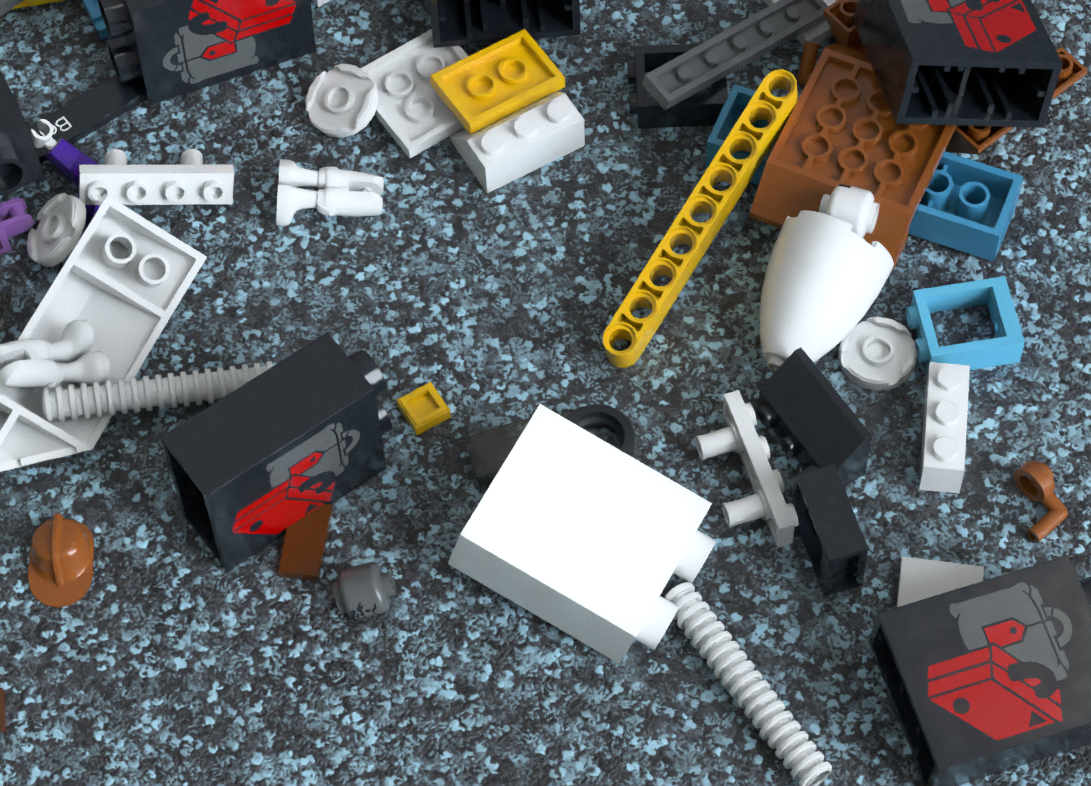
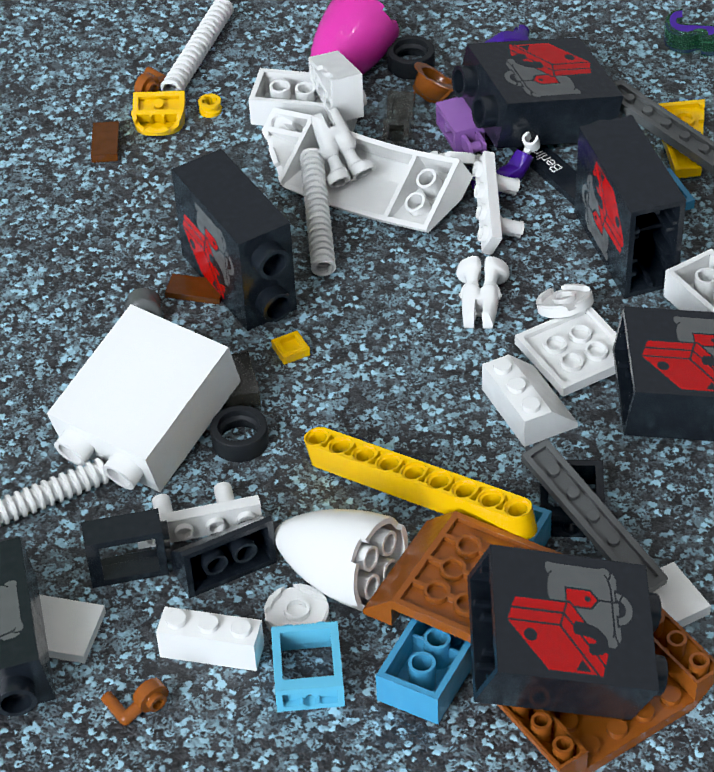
camera: 95 degrees right, 15 degrees down
(497, 81) = (570, 377): yellow plate -> none
(852, 206) = (393, 554): white head -> none

